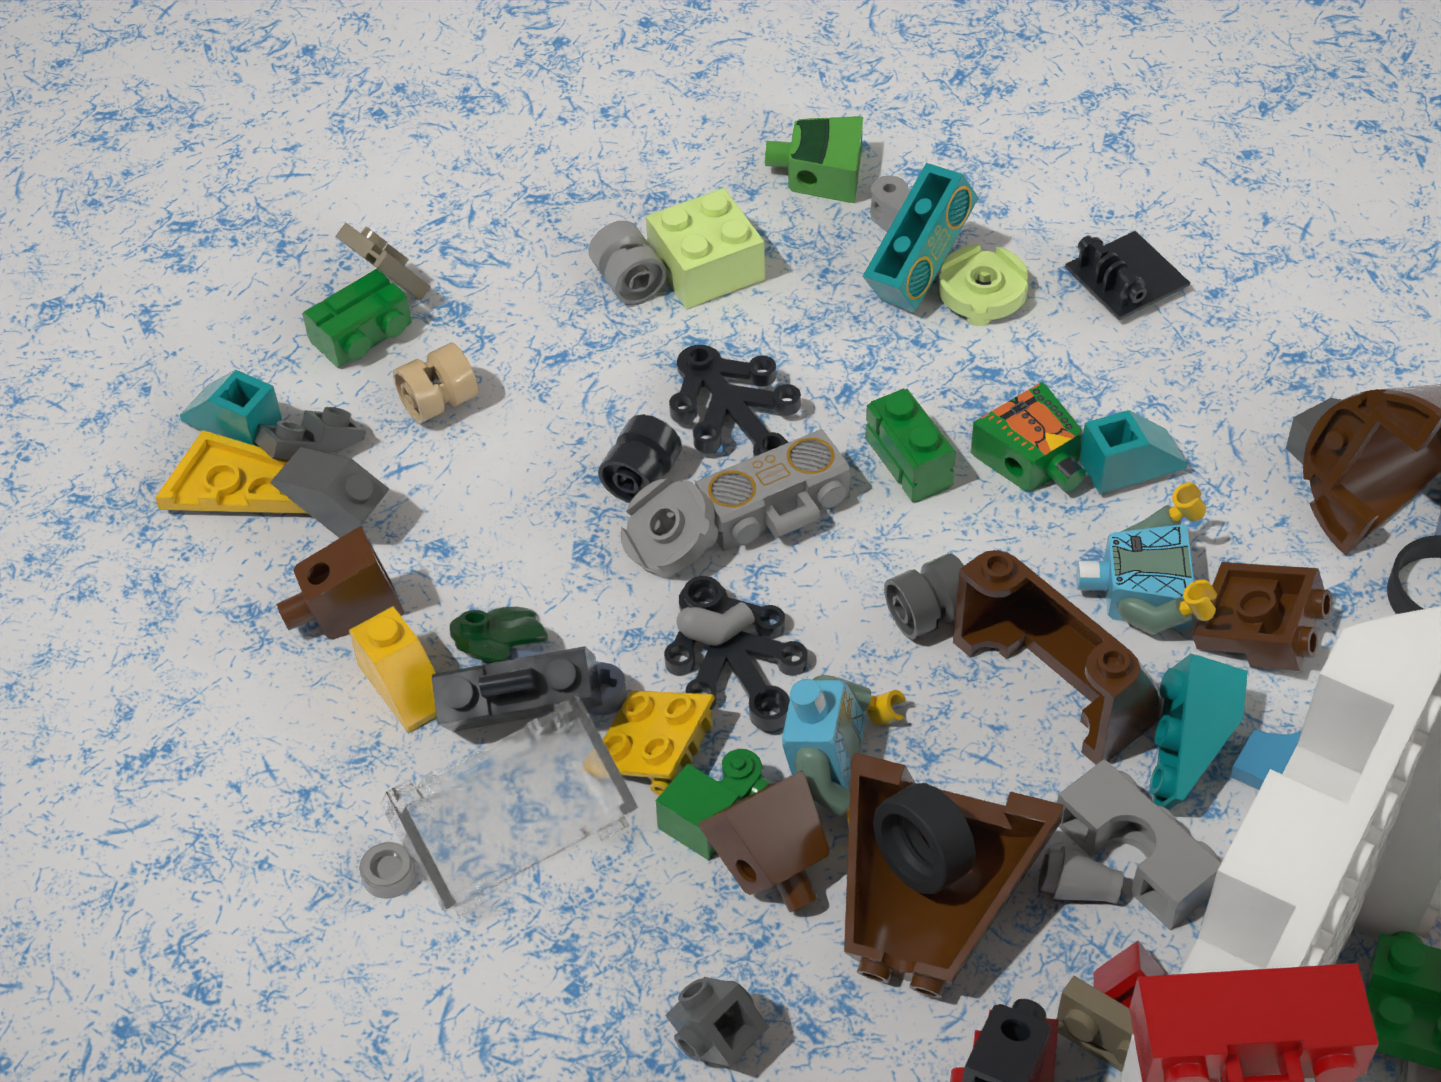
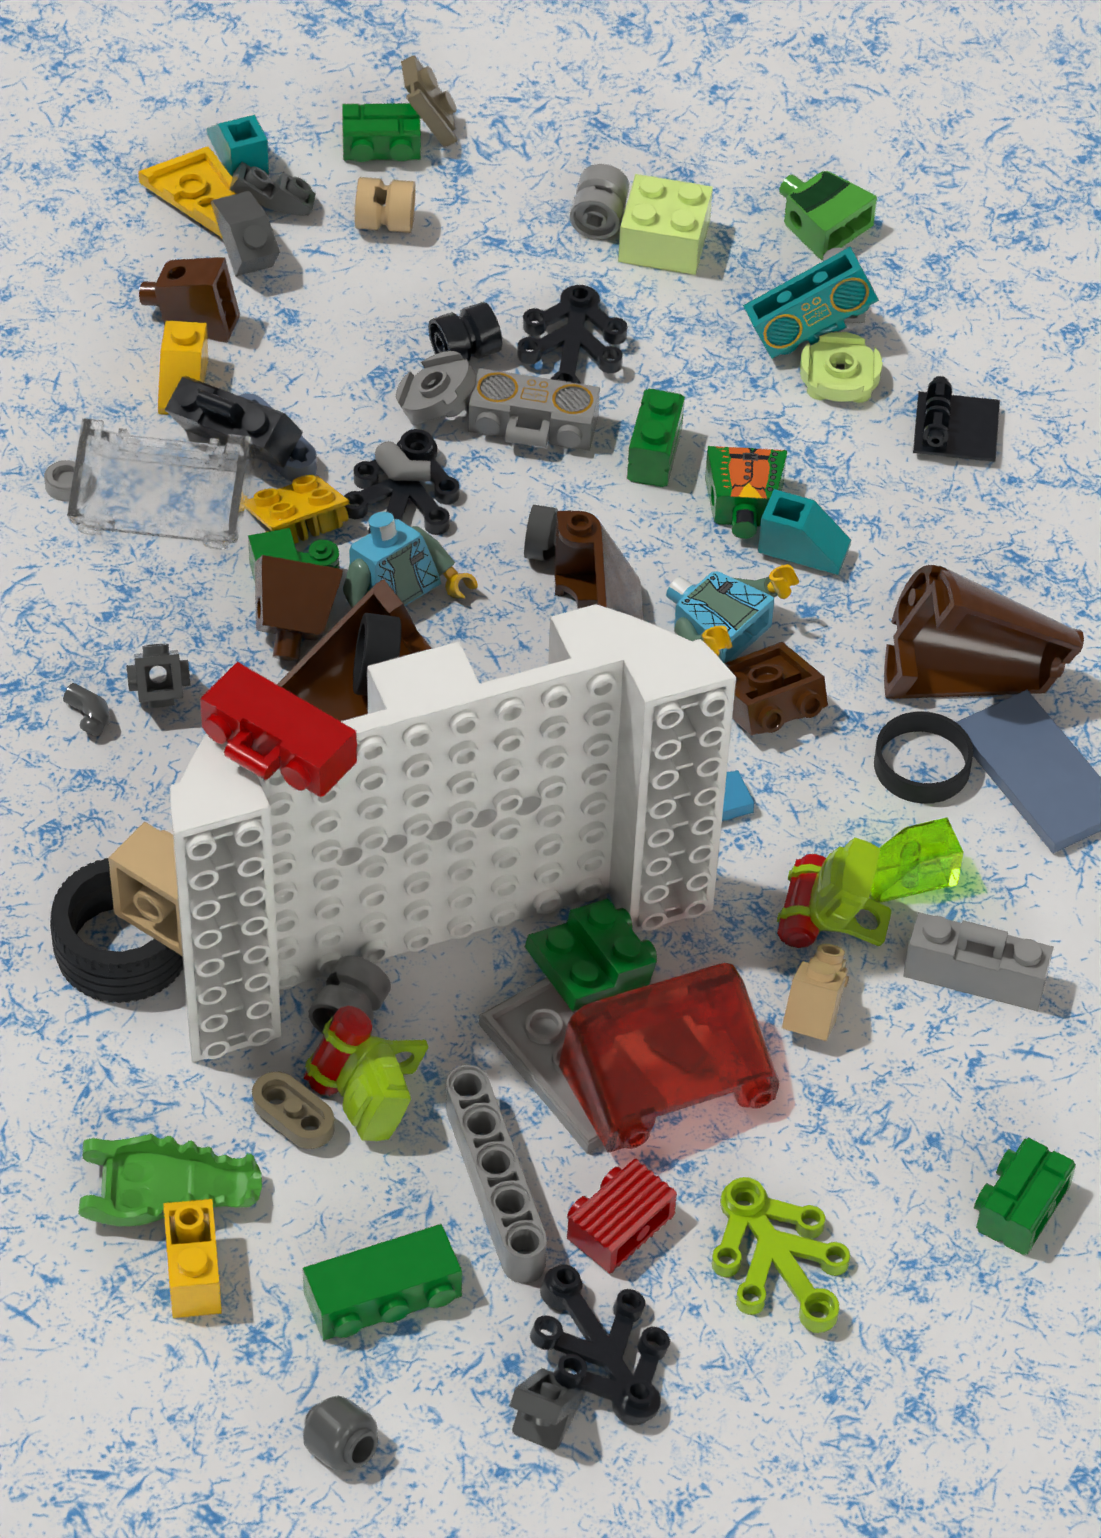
camera: 35 degrees right, 0 degrees up
(493, 633) = (256, 381): dark green plate -> none

